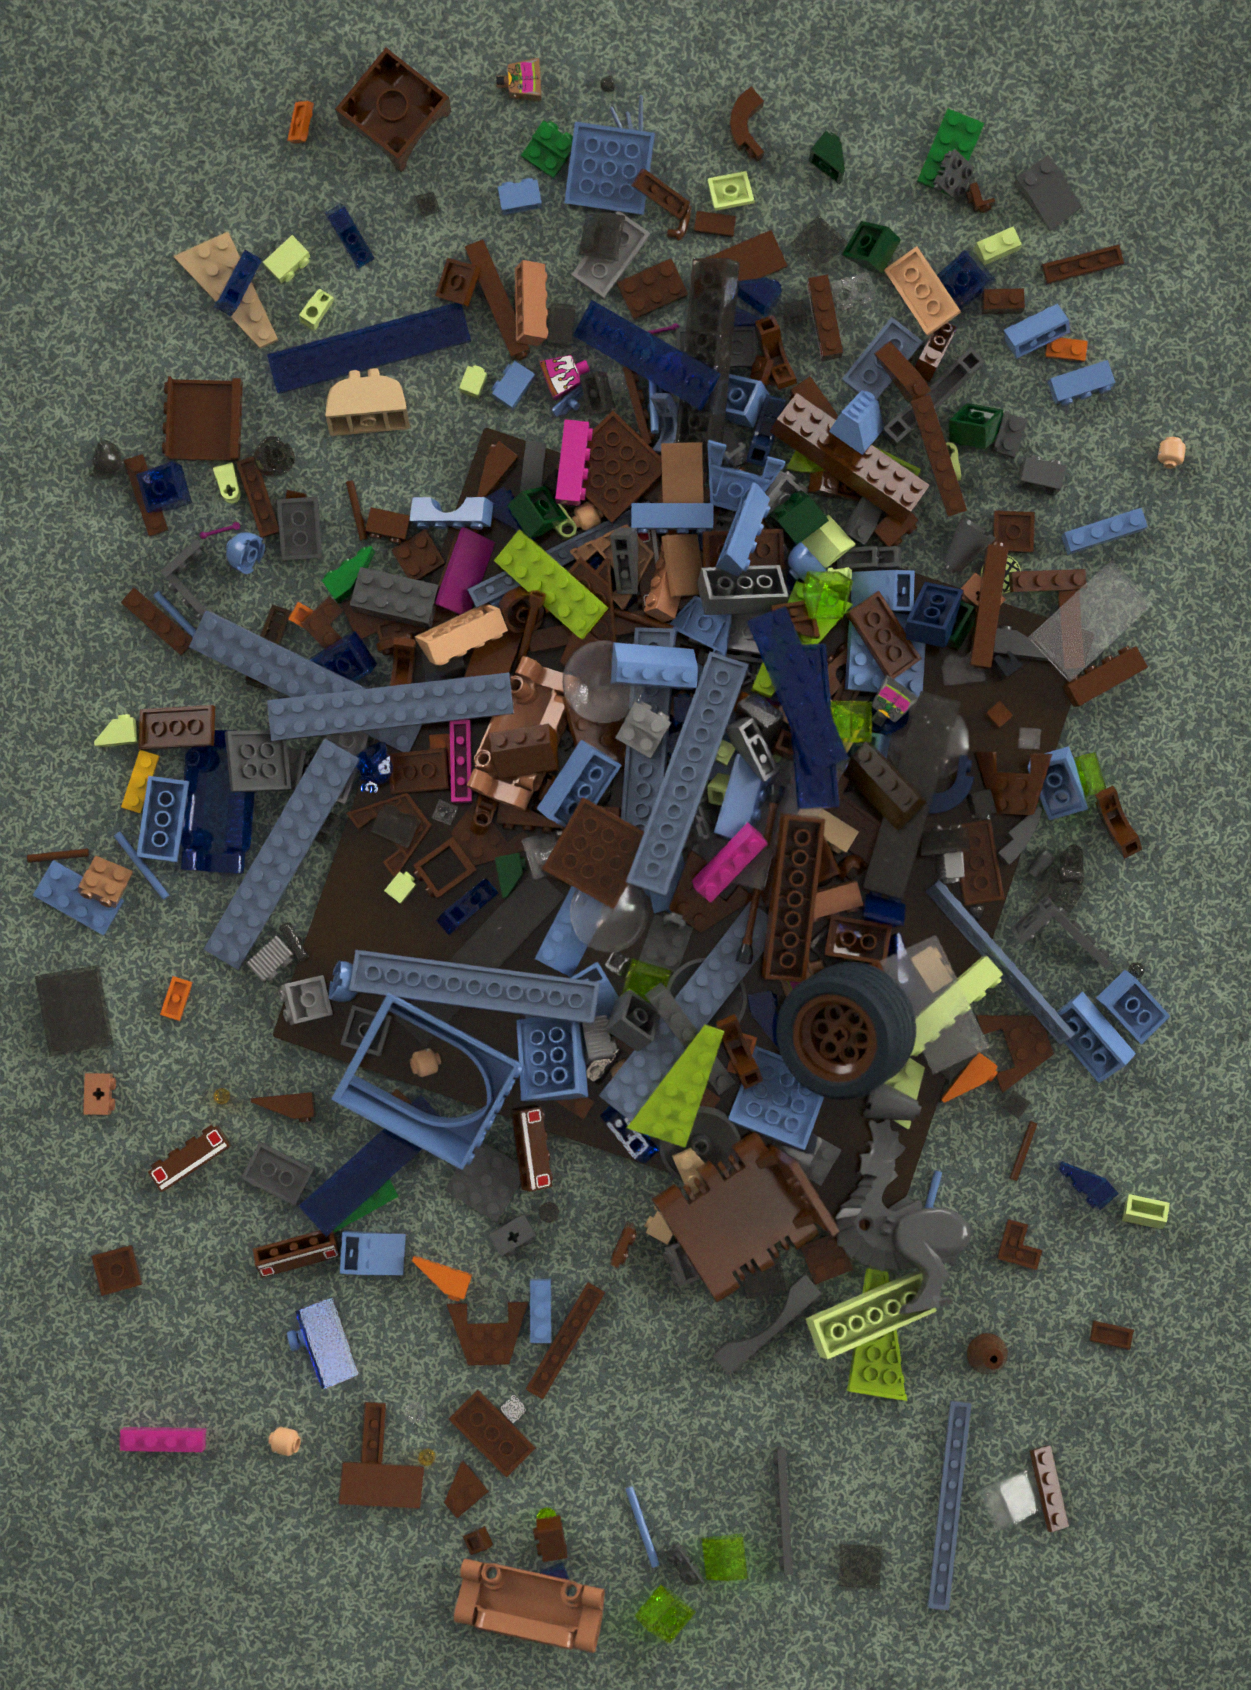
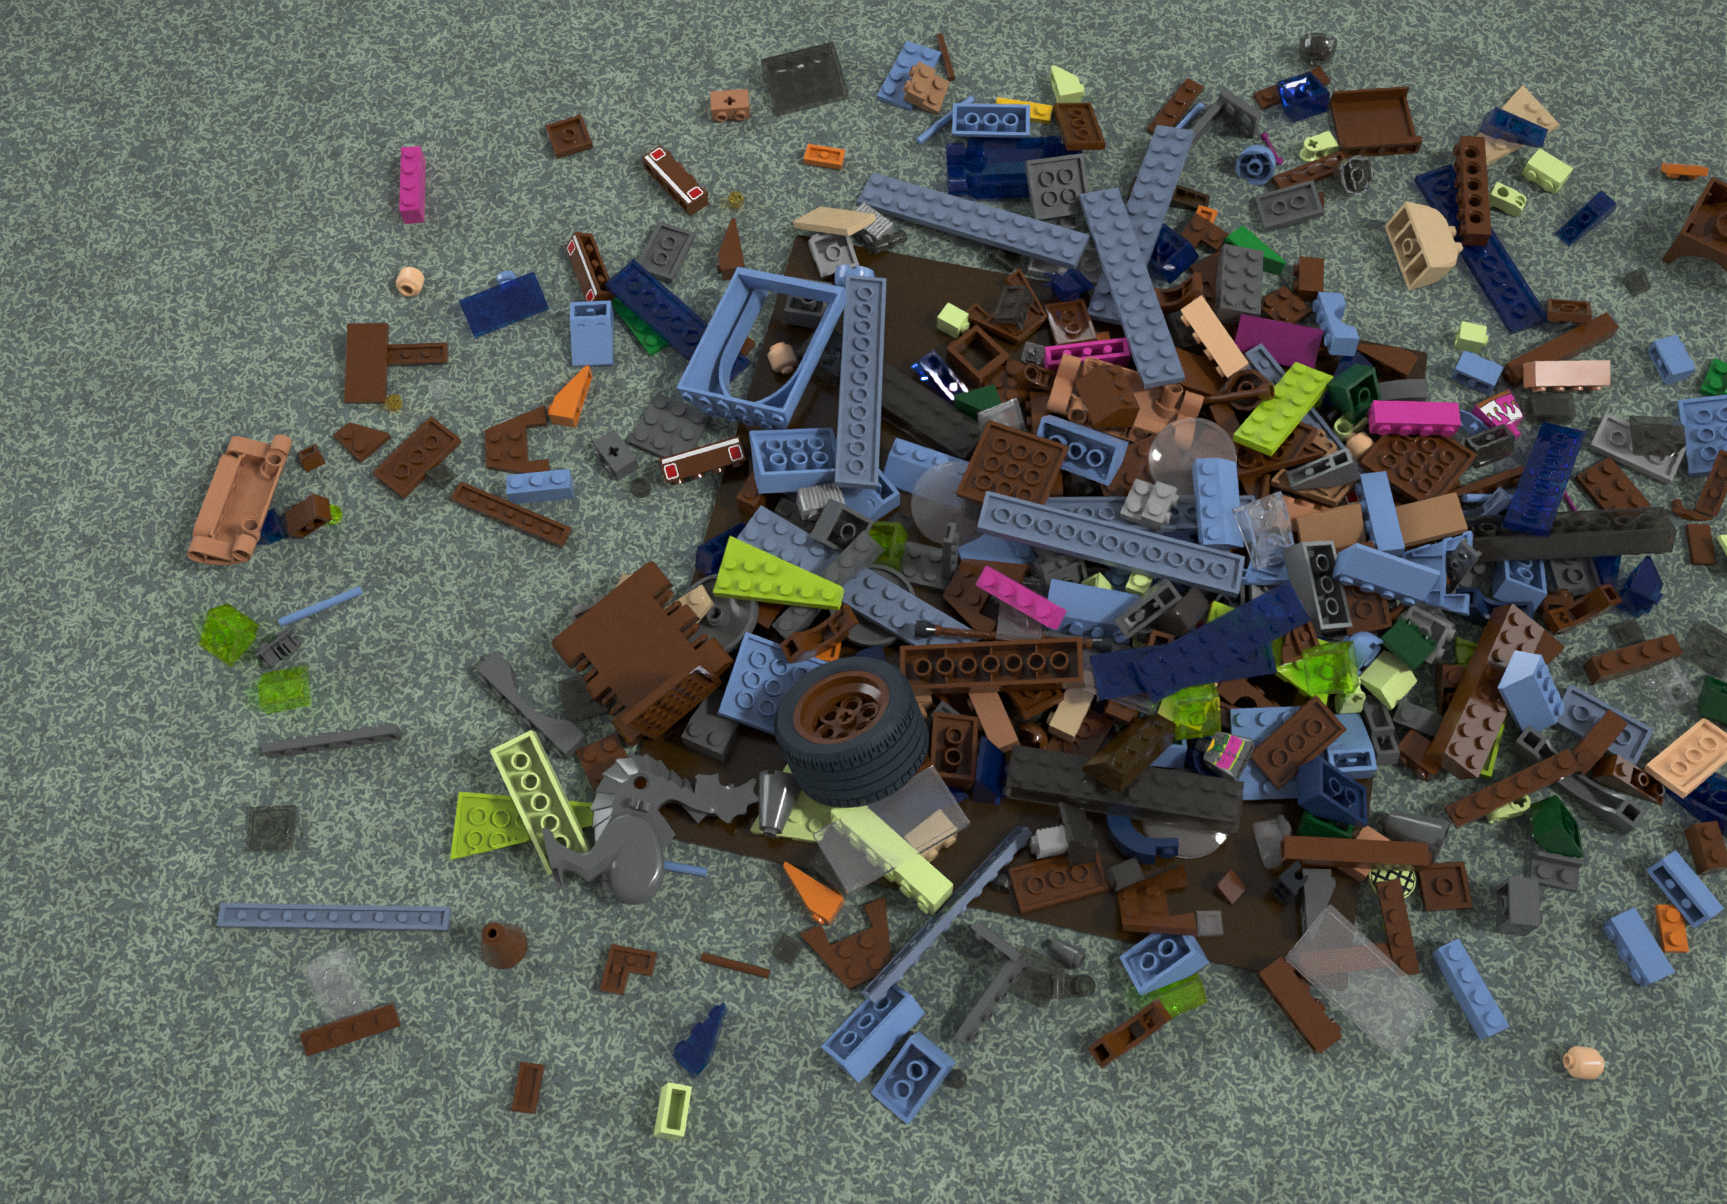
camera: 90 degrees right, 20 degrees down
(258, 328) = (1472, 191): none -> reddish brown brick
(272, 995) = (834, 221): none -> tan tile
(356, 510) = (1320, 253): reddish brown bar -> none
(621, 1251) = (608, 542): reddish brown plate -> none
(682, 628) = (1265, 529): none -> clear slope
(756, 256) = (1680, 589): reddish brown tile -> none
(1019, 837) = (1095, 922): dark grey slope -> none

